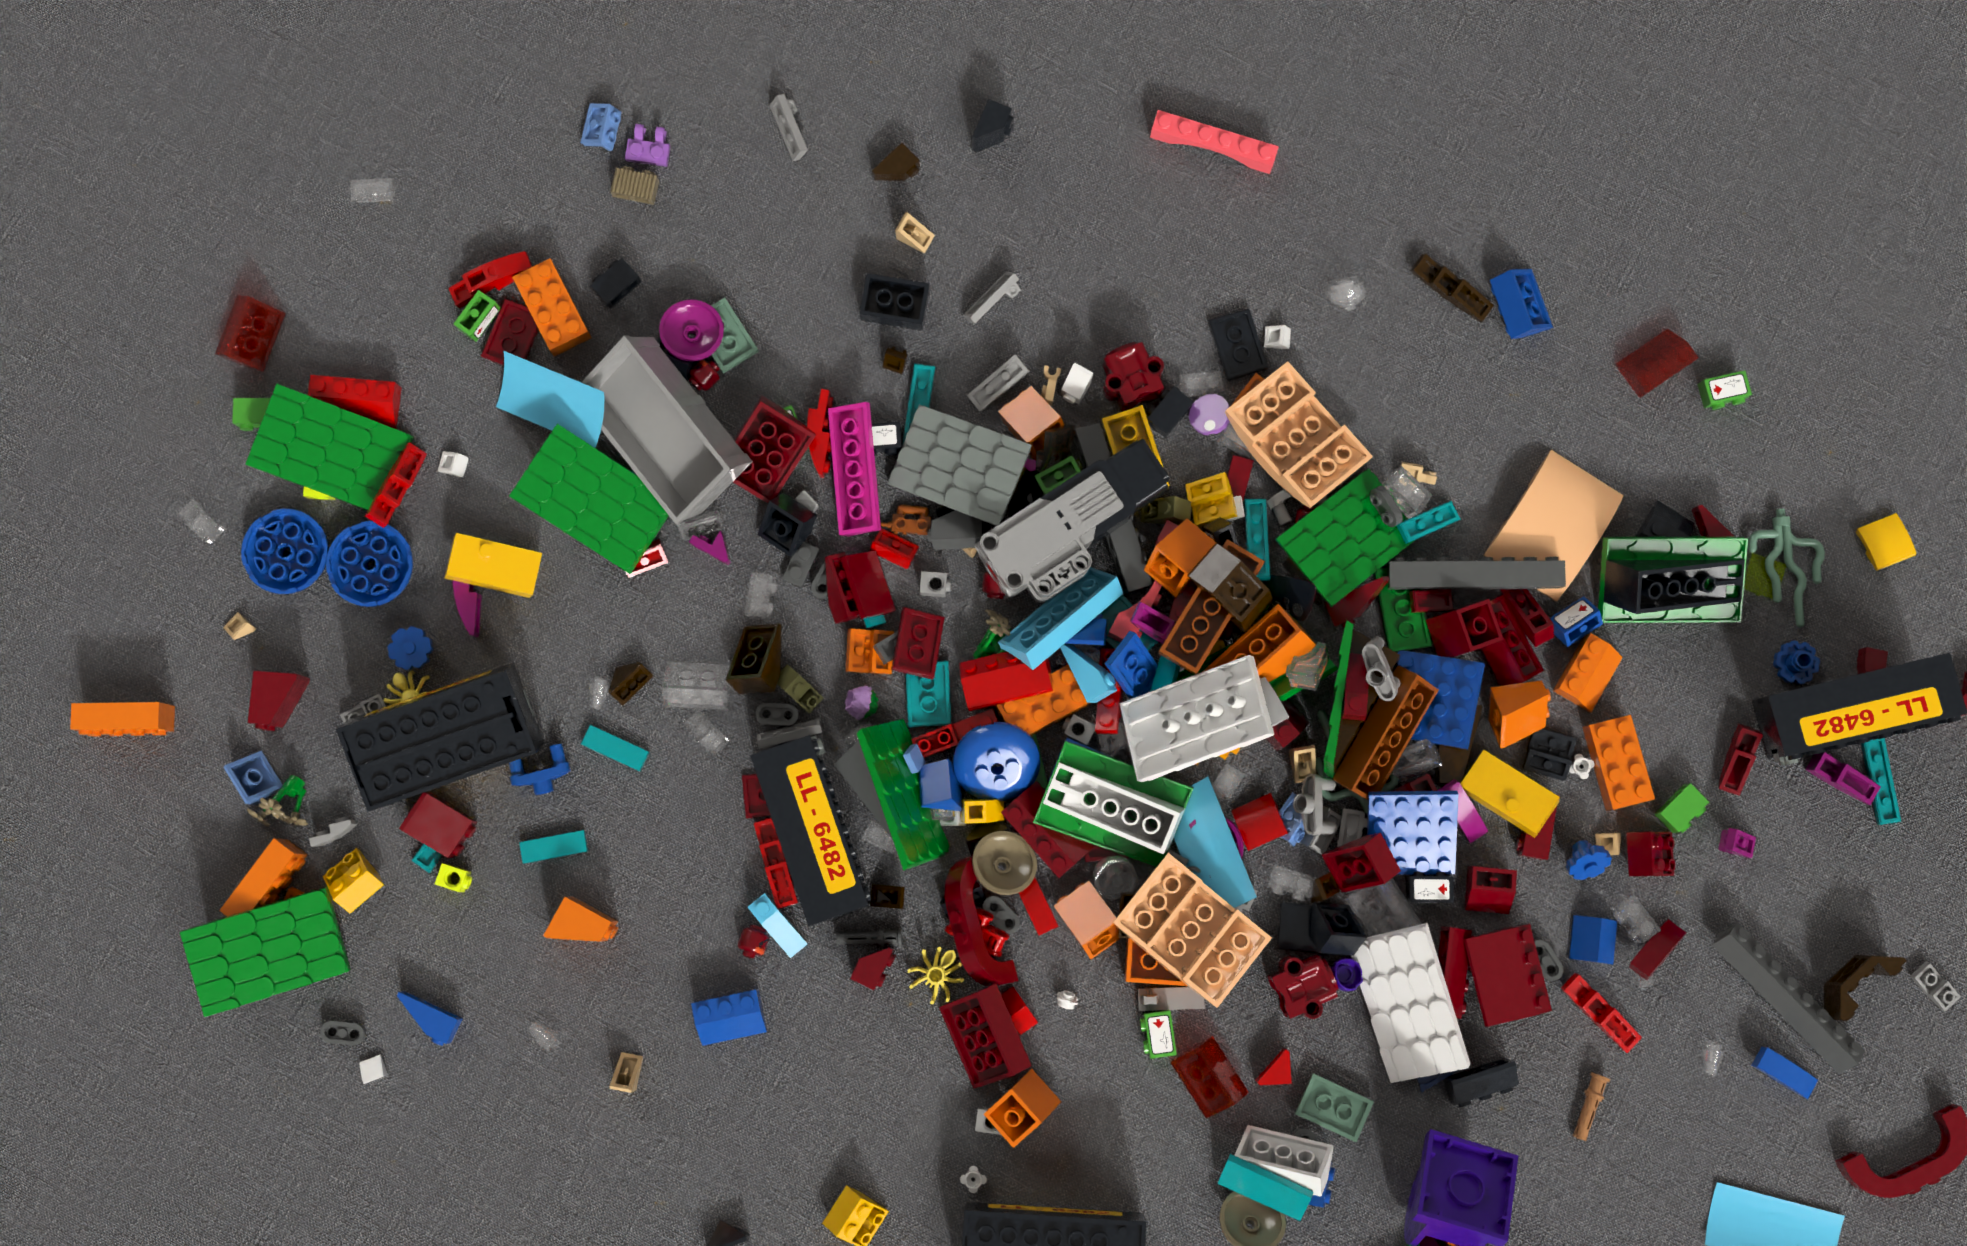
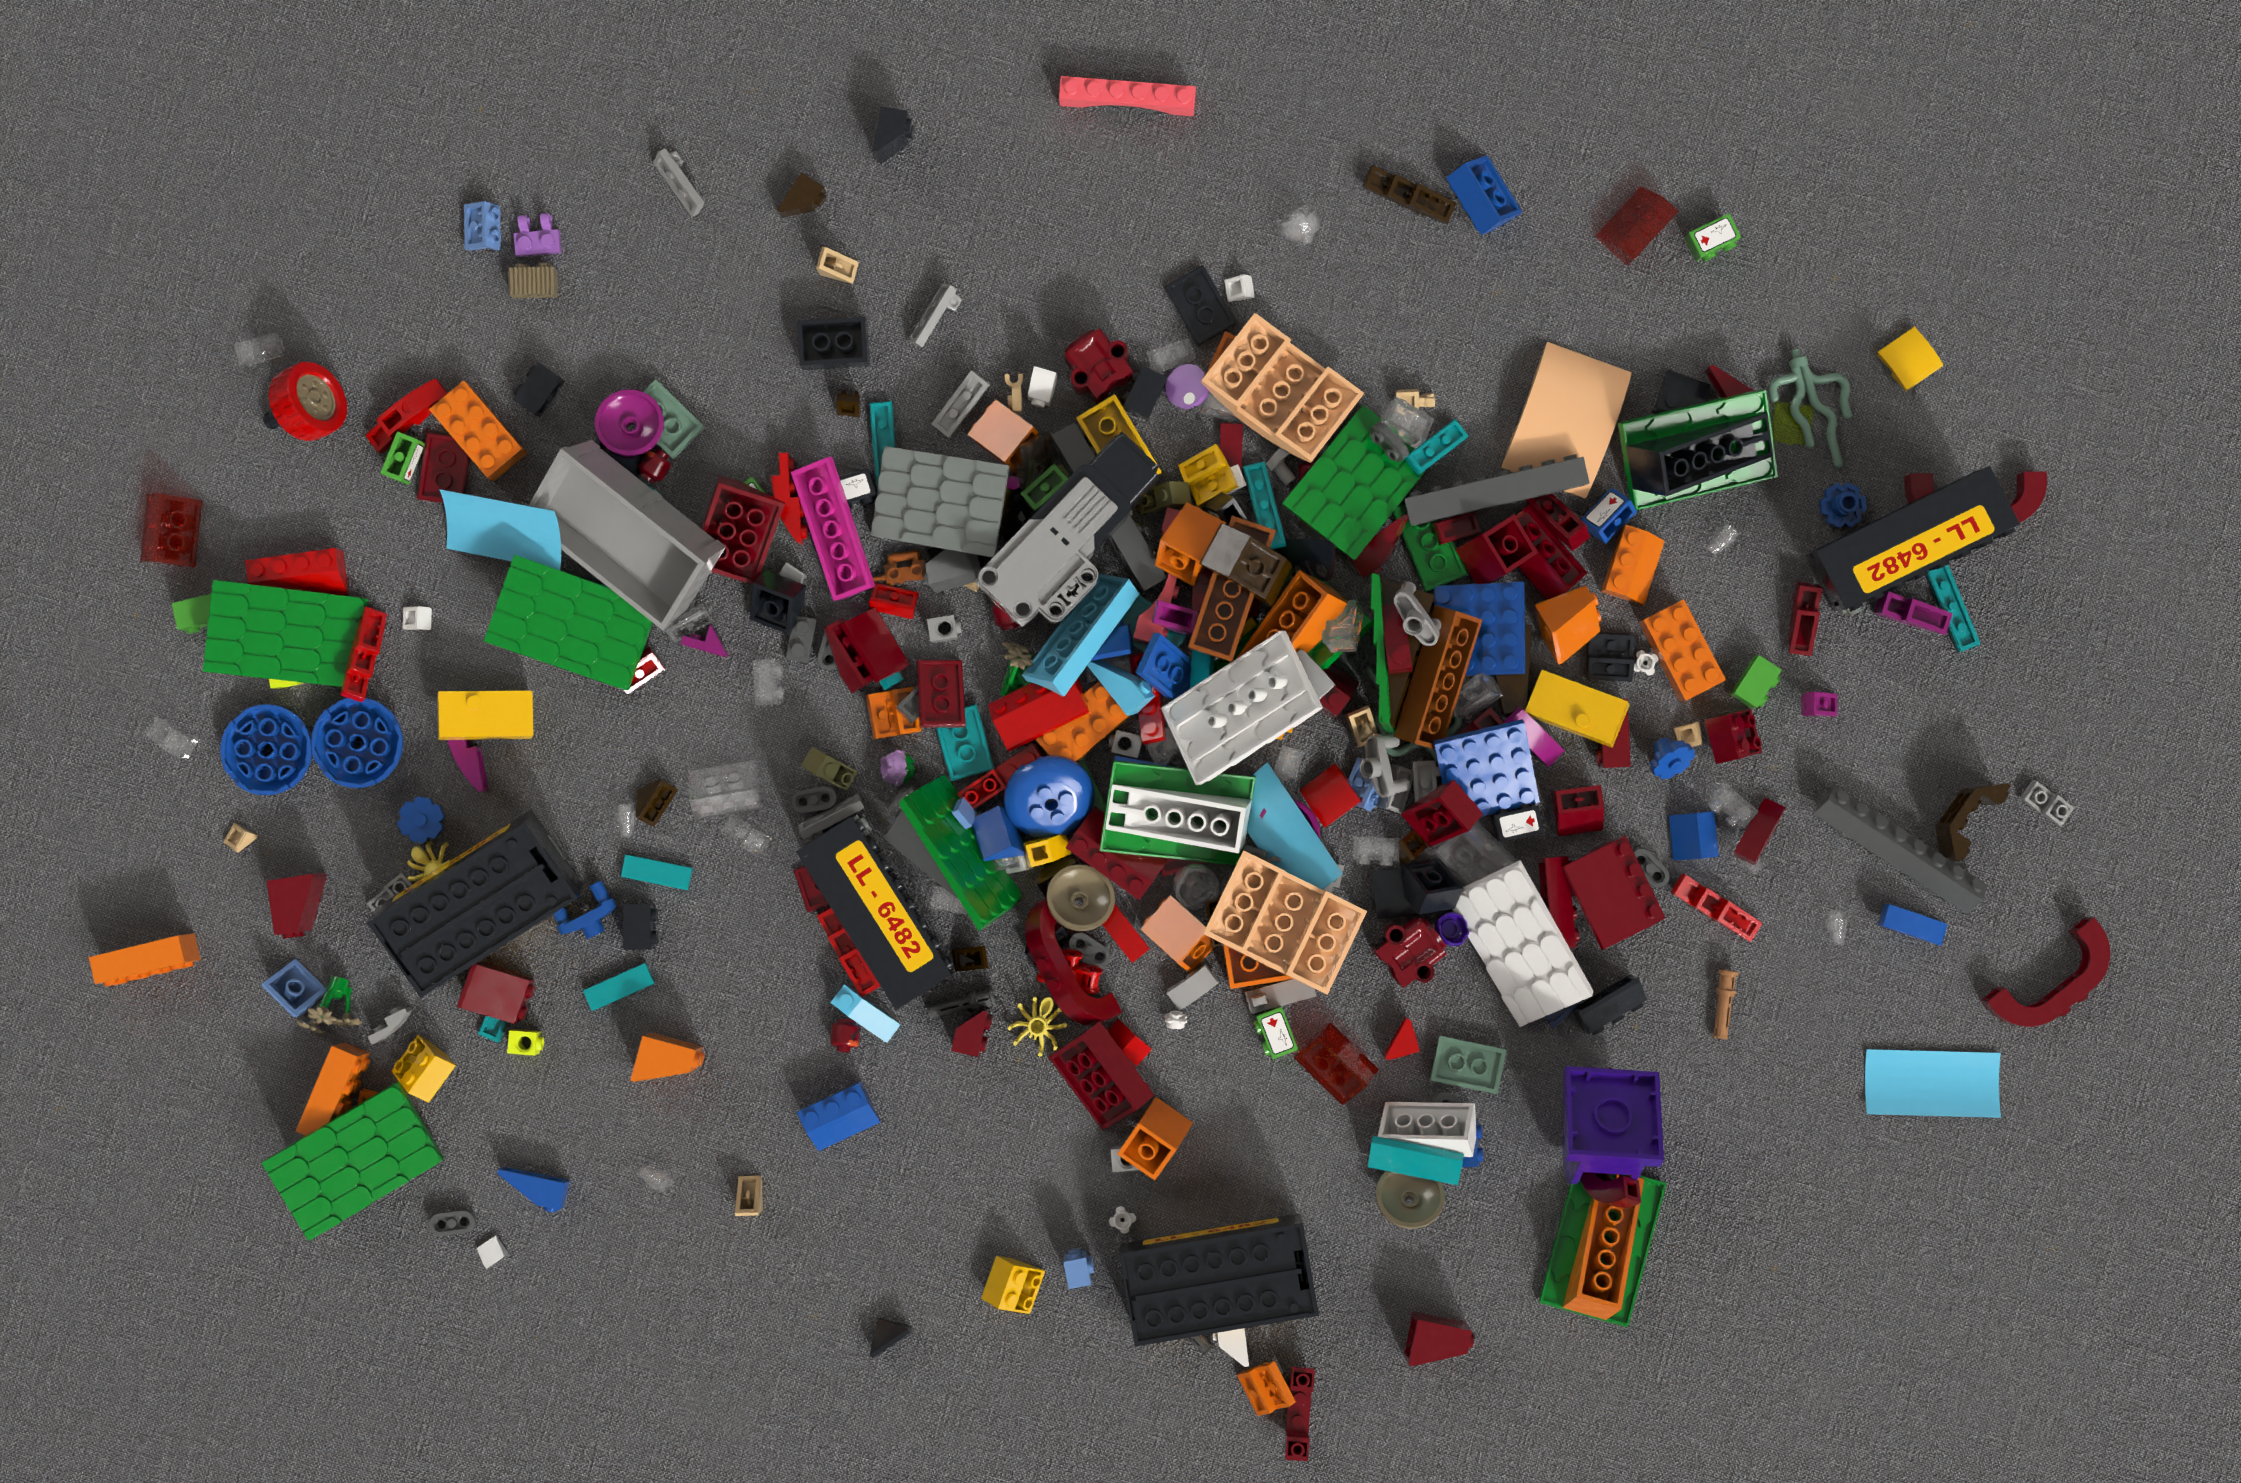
camera: 10 degrees left, 5 degrees up
(402, 244) = (306, 402): none -> red wheel
(587, 794) = (639, 926): none -> black brick
(756, 660) = (779, 749): dark brown slope -> none
(921, 1215) = (1078, 1268): none -> medium blue brick
(1089, 973) = (1193, 987): none -> light grey slope
(1677, 667) = (1722, 539): none -> clear cone

